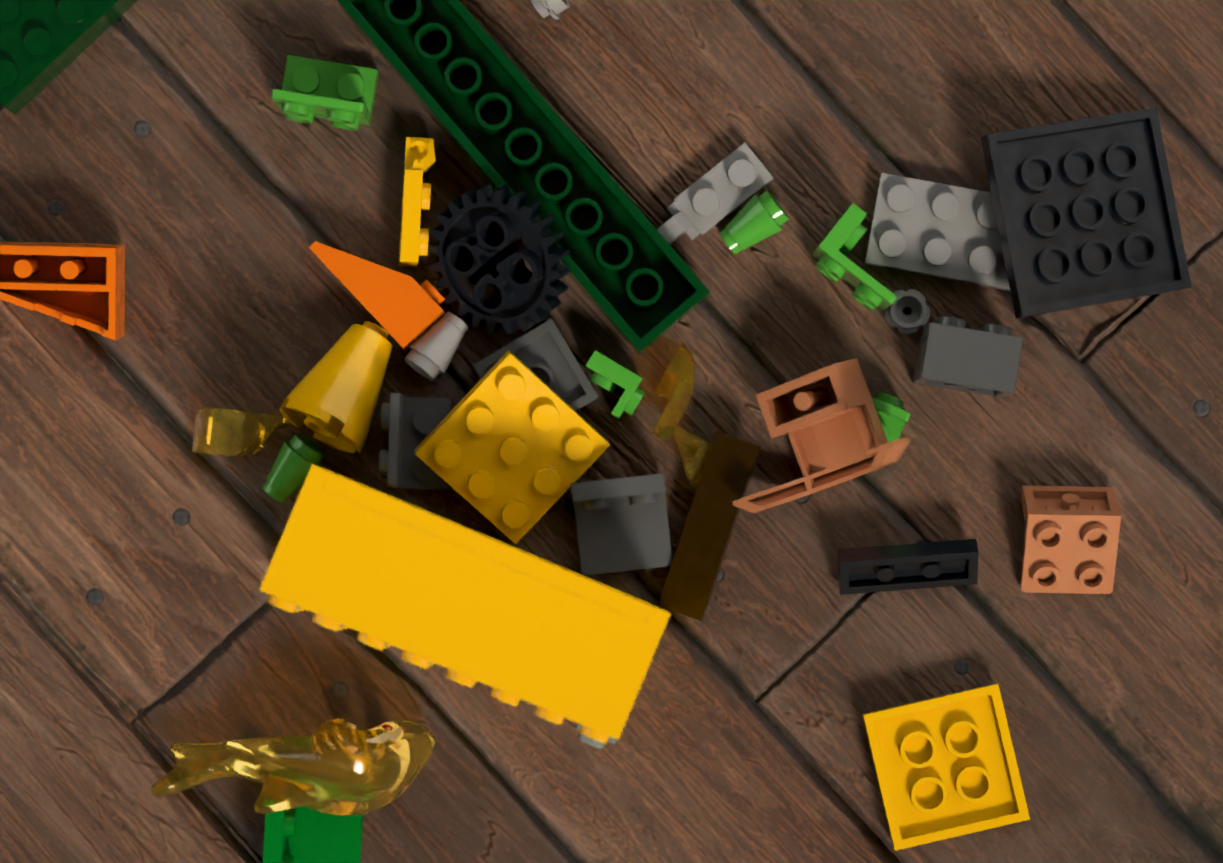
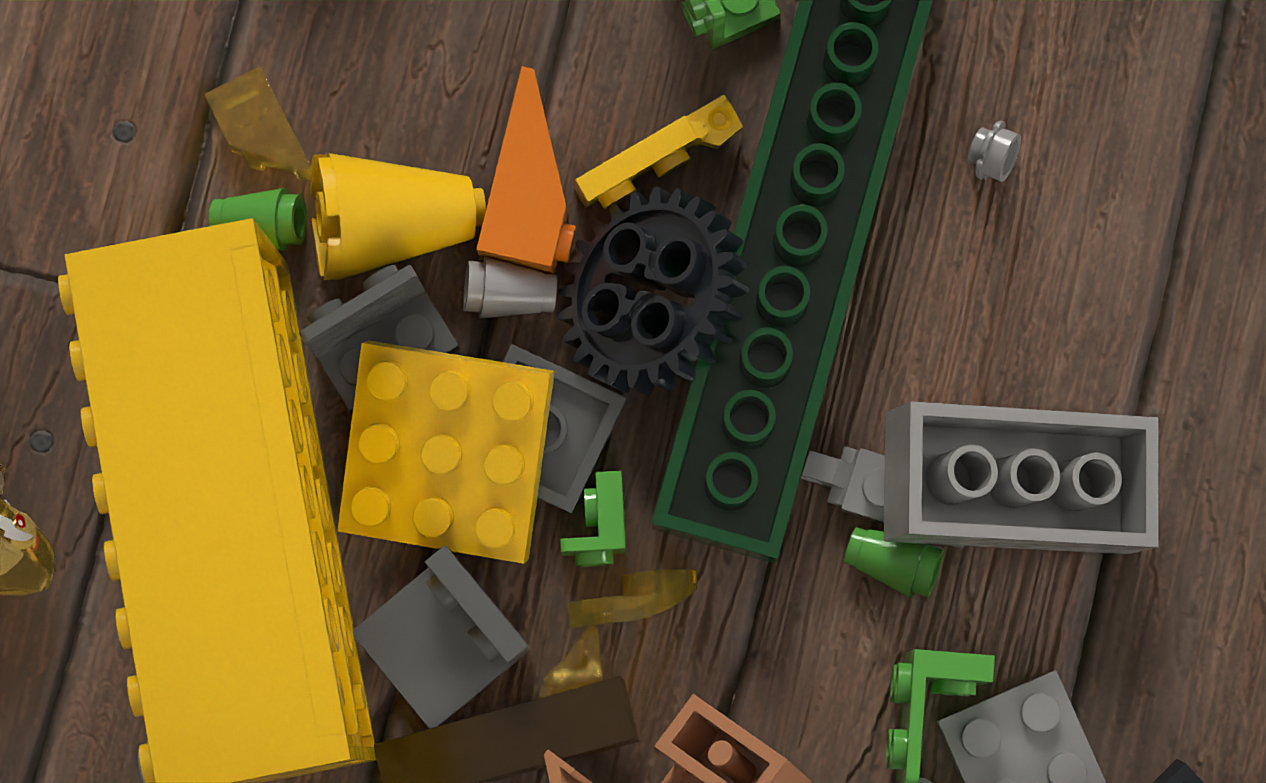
camera: 60 degrees right, 5 degrees down
(757, 116) = (1020, 478): none -> light grey brick

